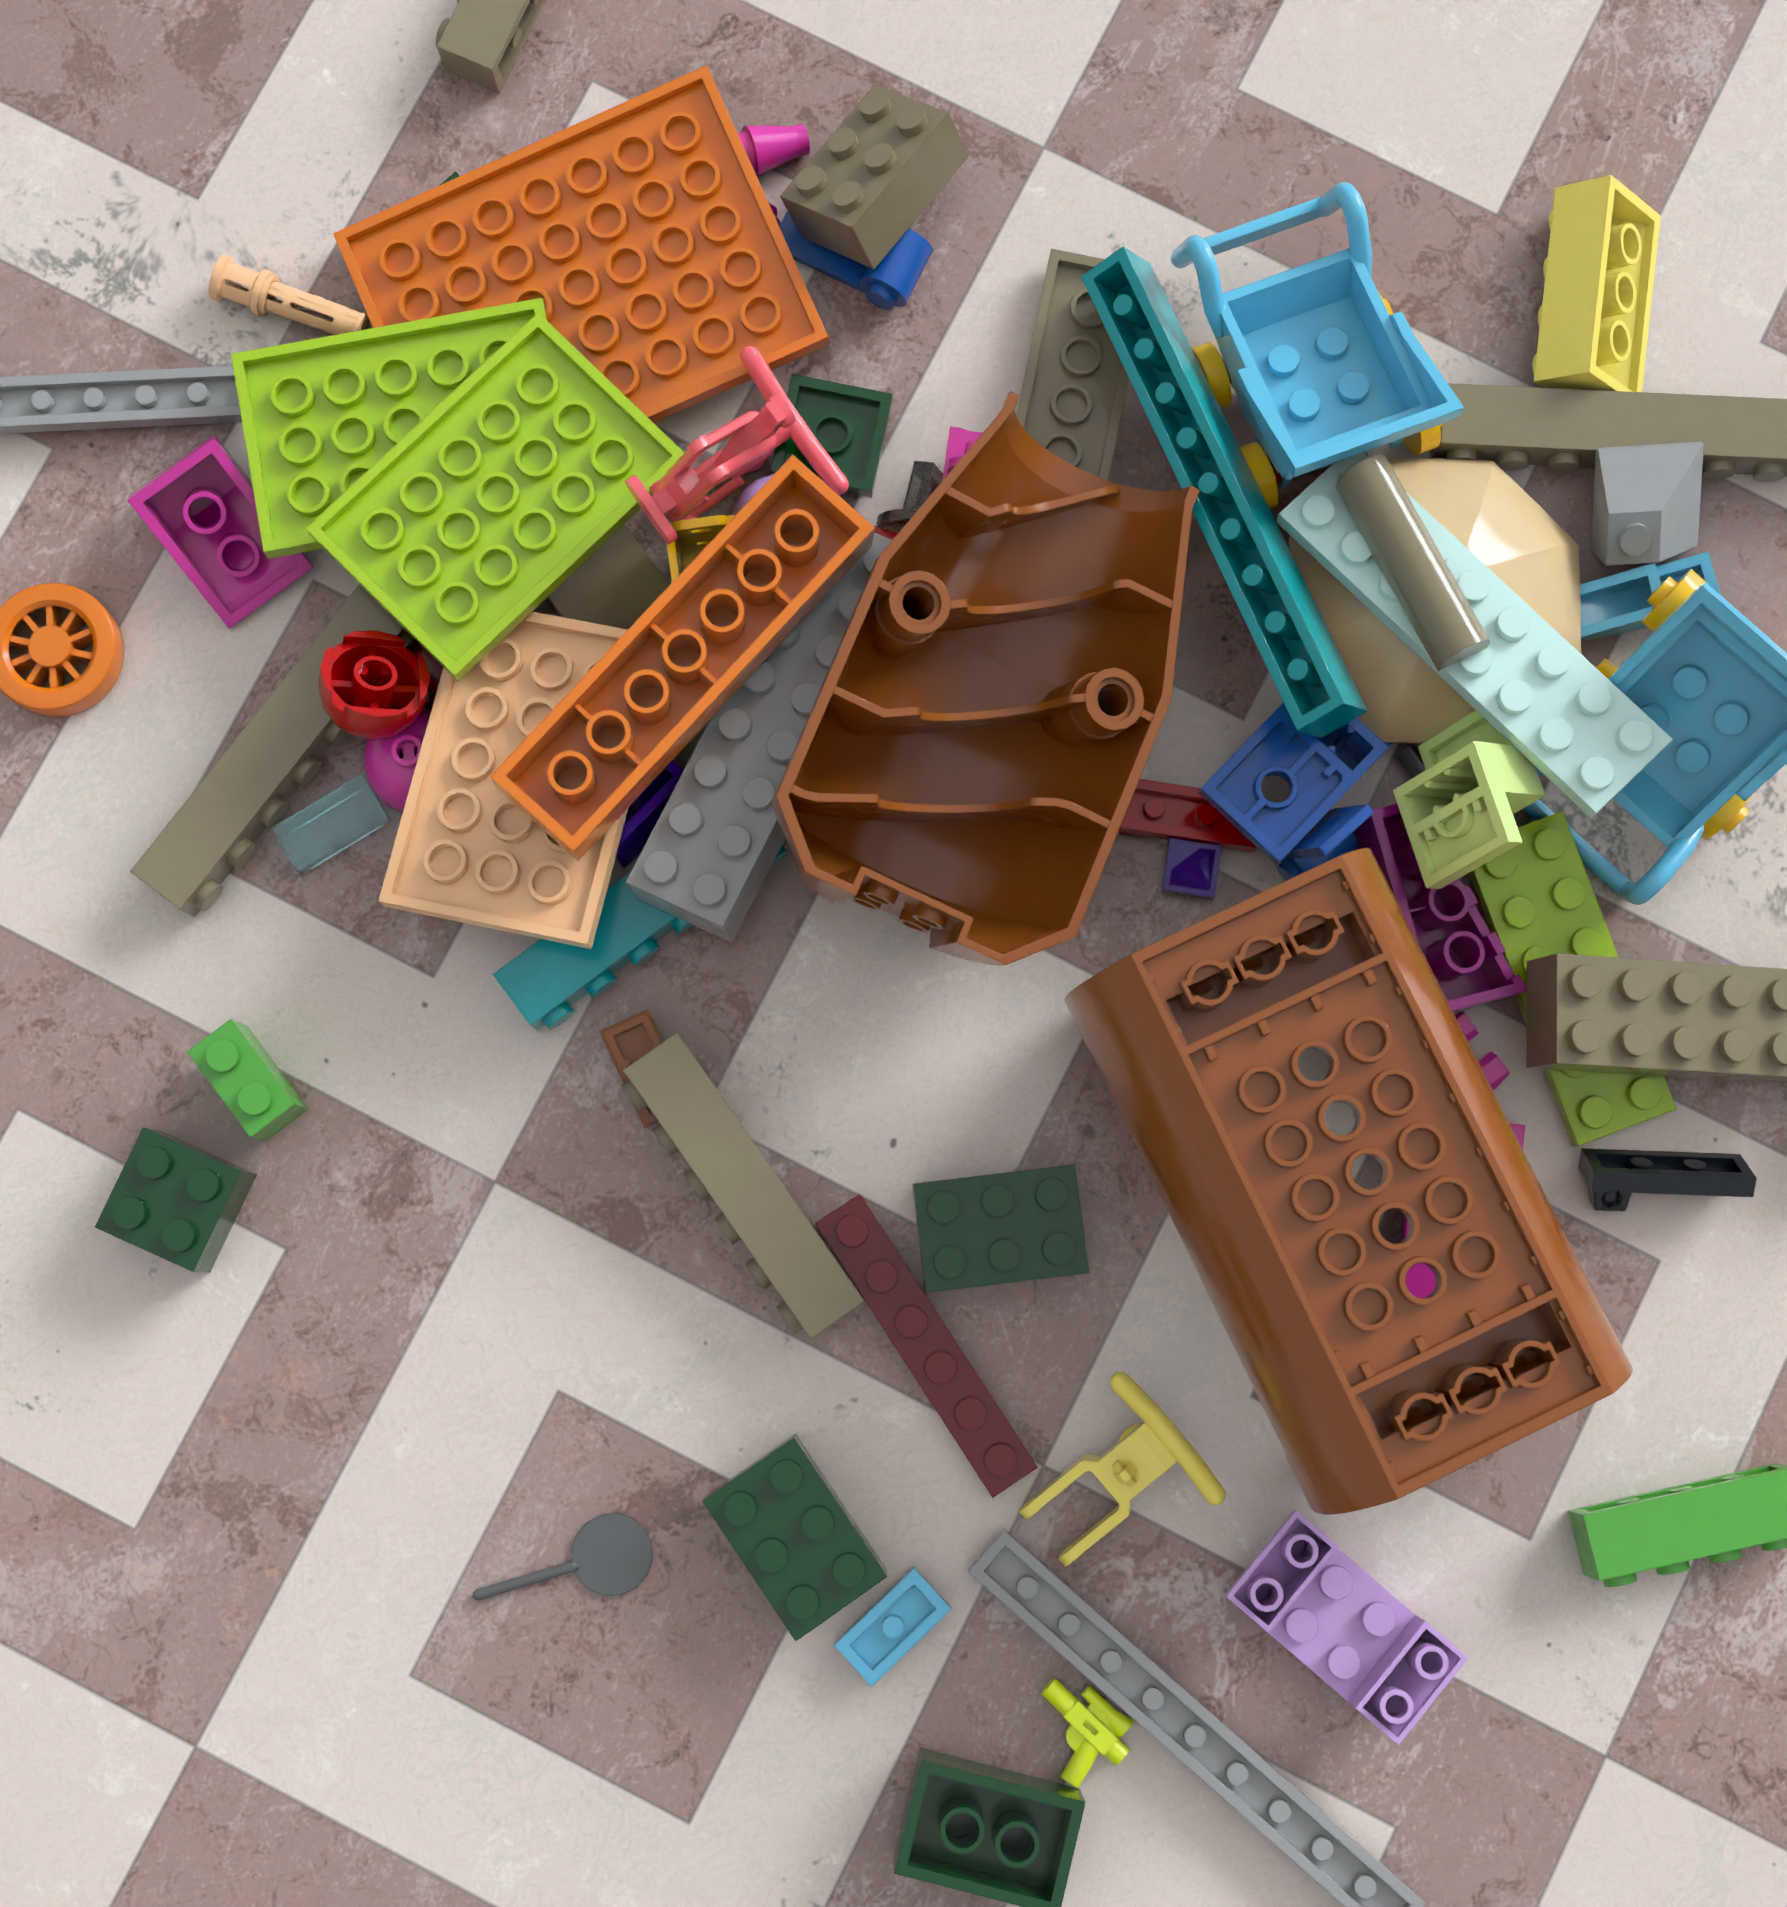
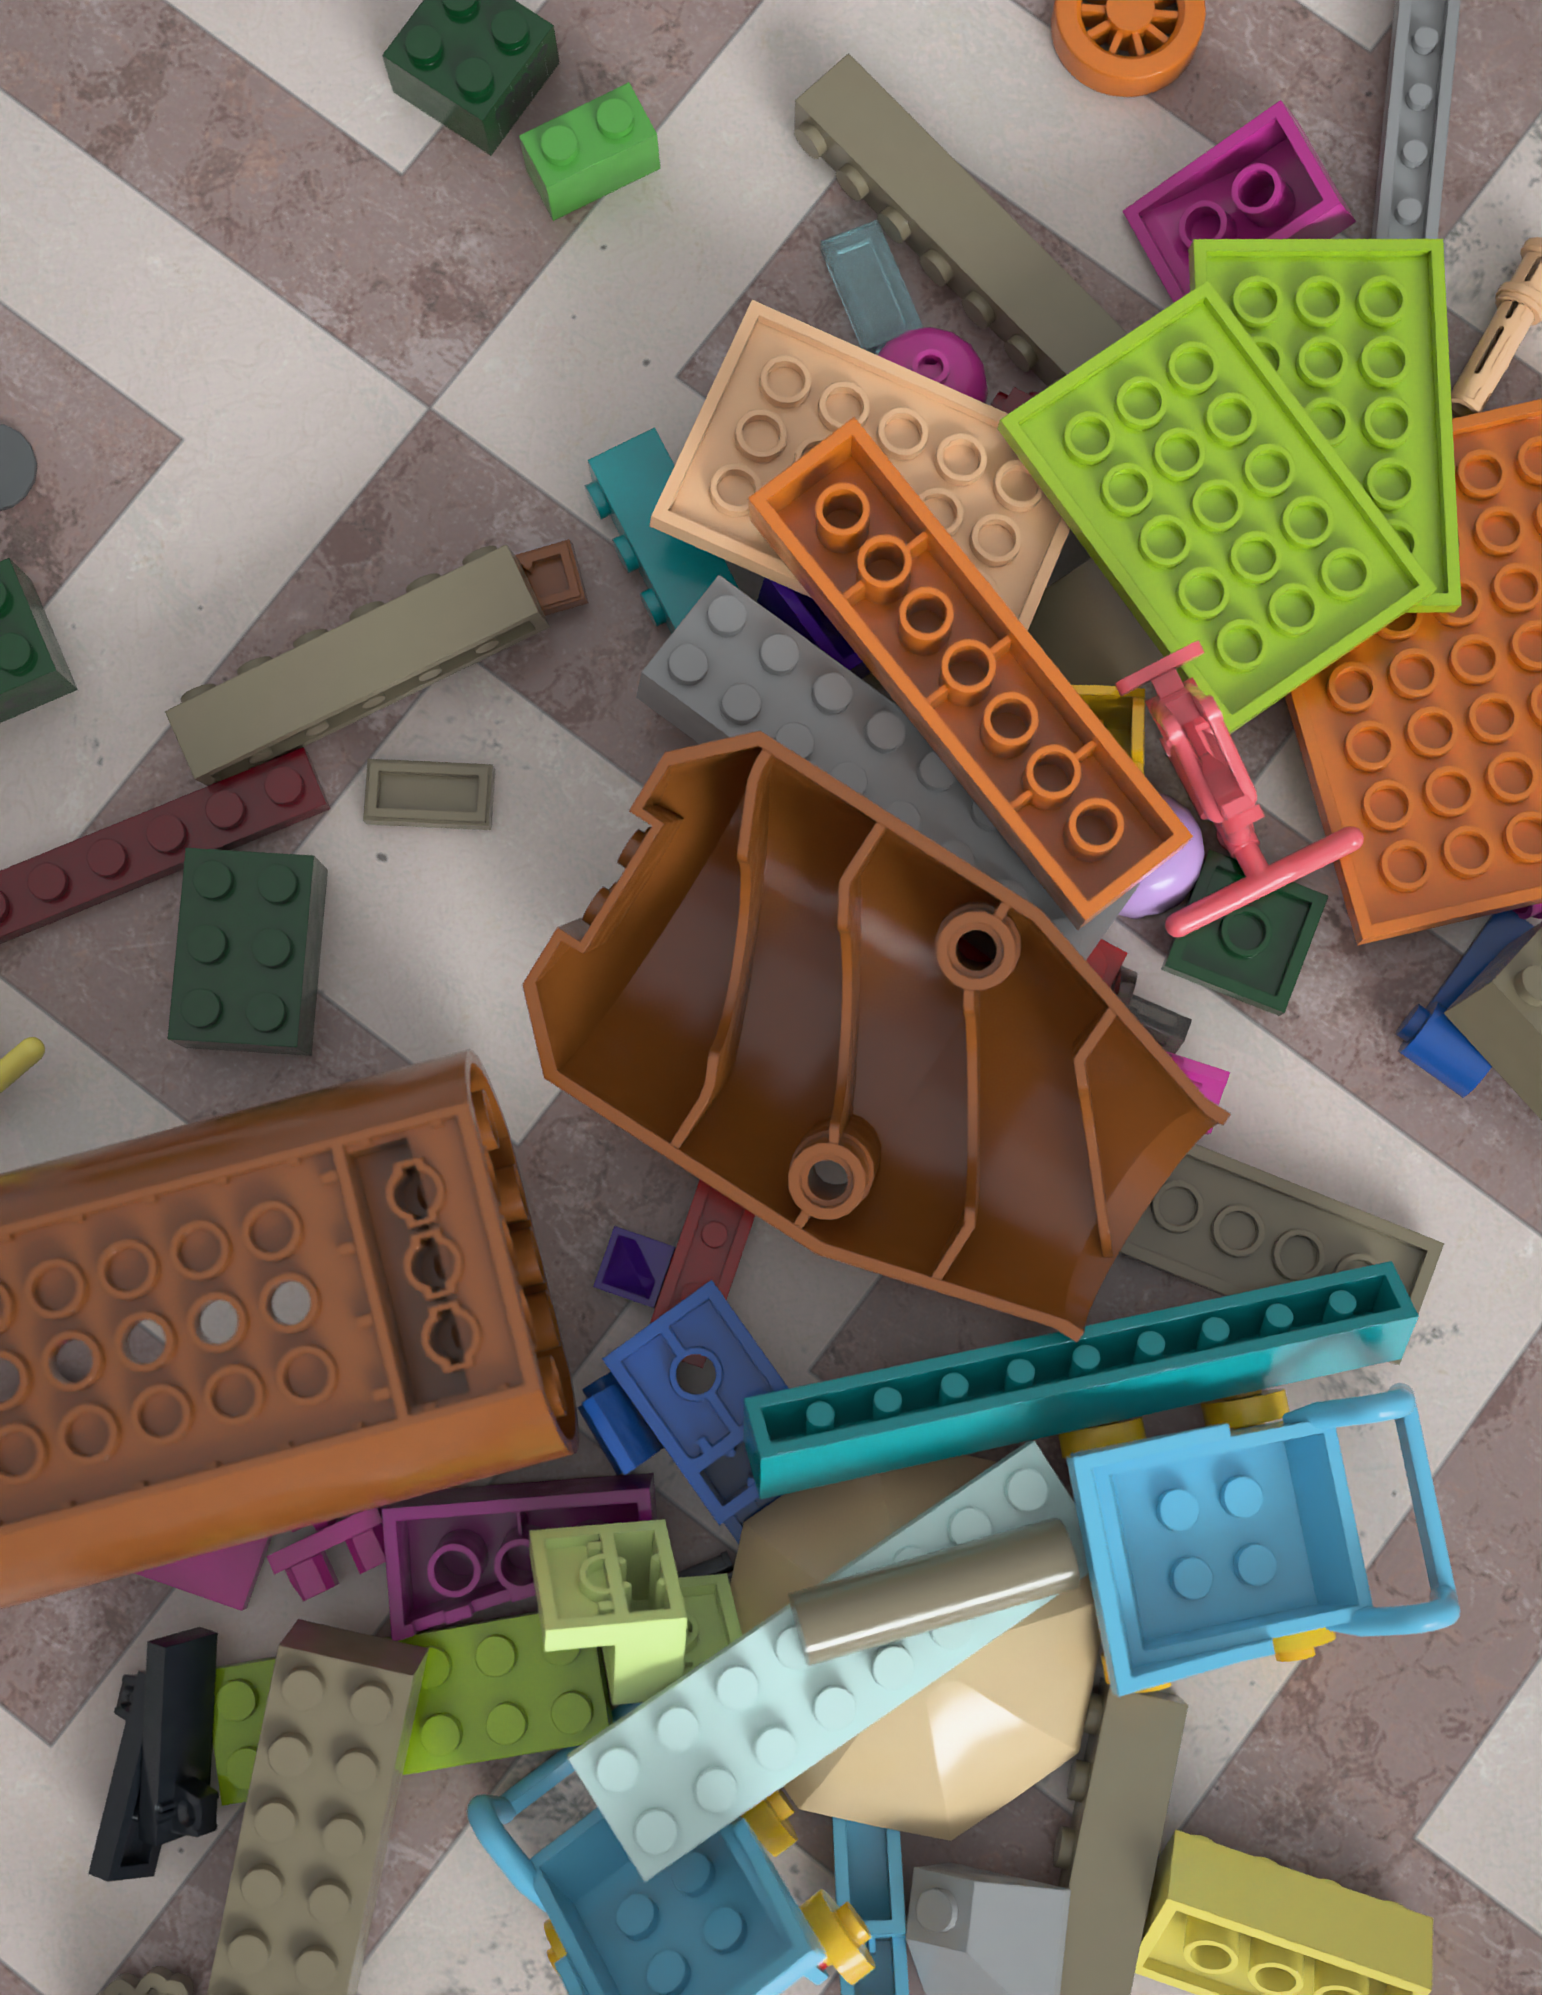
camera: 105 degrees right, 0 degrees up
(373, 684) = (1011, 332): red cylinder -> none
(834, 1111) = (429, 794): none -> dark tan tile
(1637, 1149) = (178, 1738): none -> black hinge

